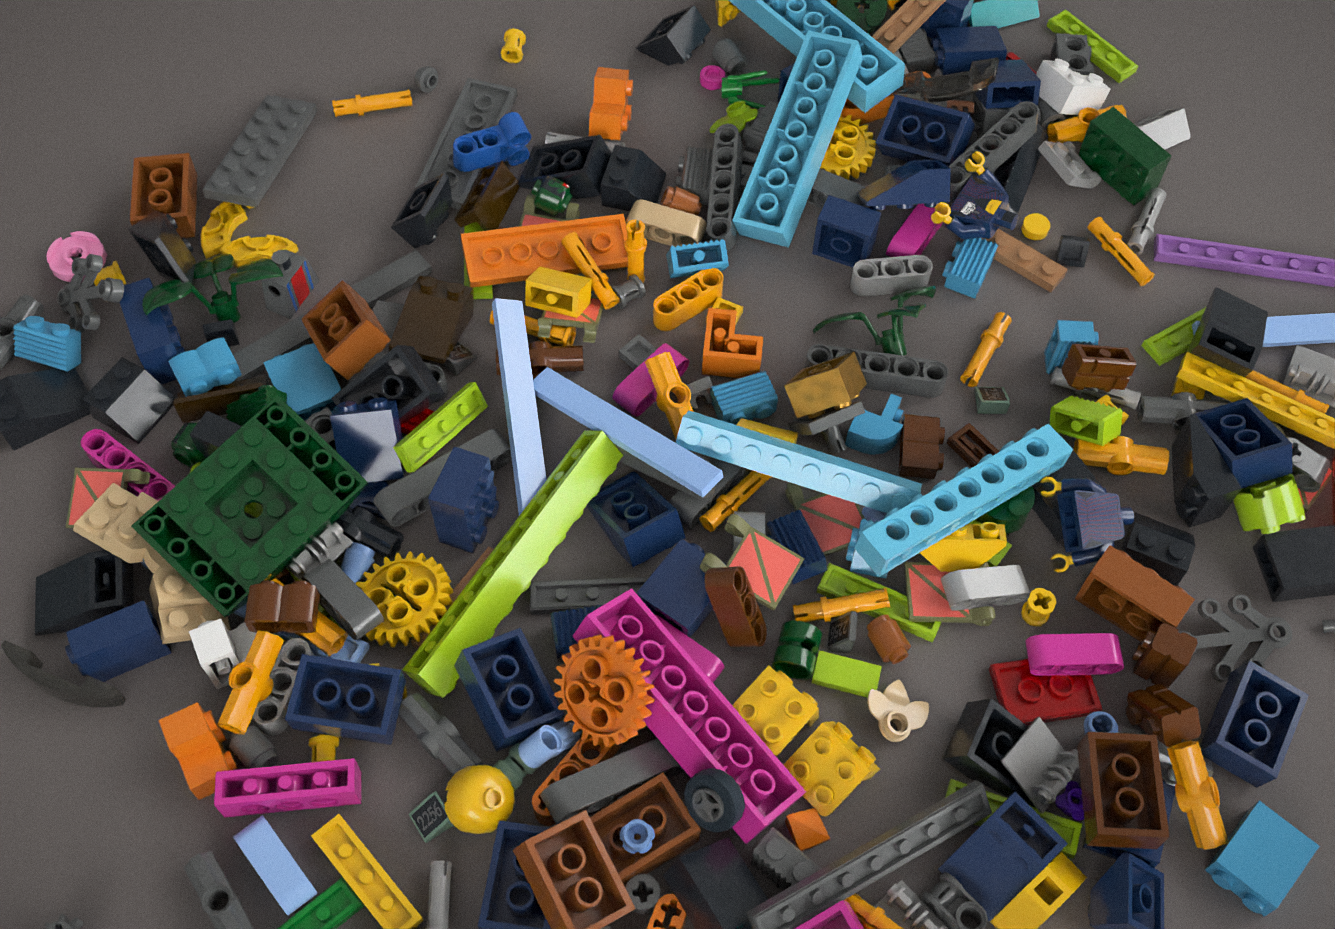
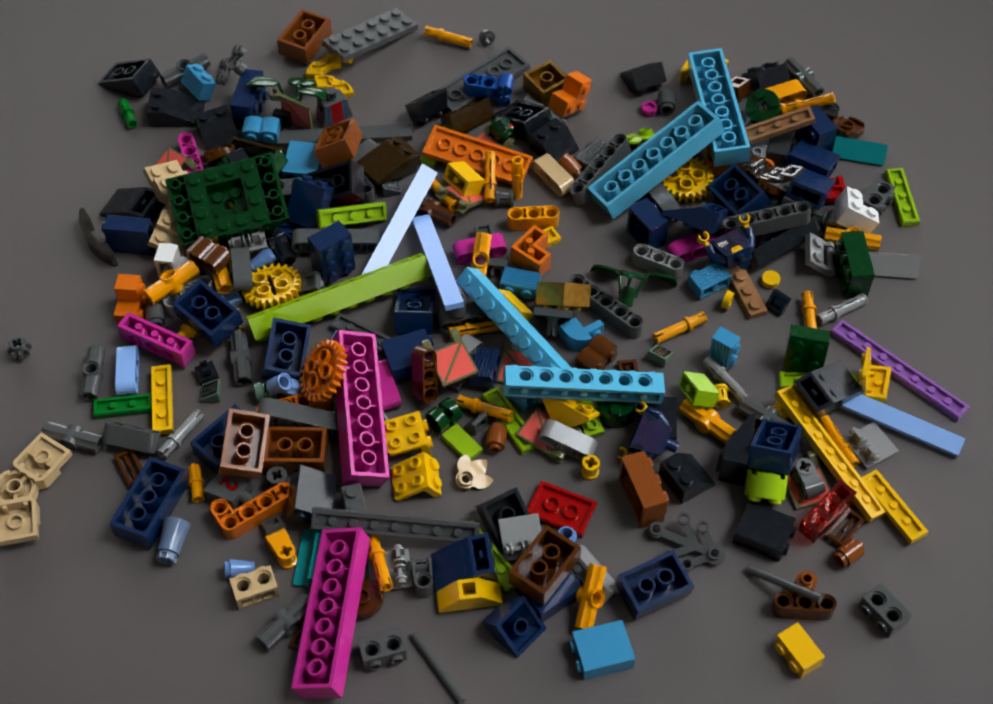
camera: 35 degrees right, 5 degrees down
(62, 250) = (250, 42): bright pink plate -> none
(112, 271) = (252, 63): yellow bush -> none
(161, 438) = (216, 153): none -> reddish brown tile
(165, 247) = (284, 60): black slope -> none
(248, 313) = (300, 112): none -> flag
(401, 792) = (206, 372): none -> black tile
(458, 559) = (312, 282): none -> dark grey tile
(479, 799) = (235, 390): yellow cylinder -> none
(513, 45) = (548, 40): yellow bush -> none
(560, 104) = (543, 81): none -> pearl gold brick
(637, 827) = (287, 441): medium blue plate -> none
(693, 258) = (548, 196): dark azure brick -> none
(714, 800) = (336, 449): black wheel -> none
(733, 86) = (655, 119): green plant -> none
(806, 829) = (381, 499): orange slope -> none
(1013, 280) = (727, 300): none -> yellow tile
(1074, 654) = (586, 497): dark pink beam -> none
(1098, 367) = (726, 364): reddish brown brick -> none
(1163, 655) = (634, 524): reddish brown brick -> none
(1163, 714) = (605, 550): reddish brown brick -> none
(1164, 294) = (806, 348): none -> dark green brick
(1259, 287) = (873, 378): none -> yellow bracket

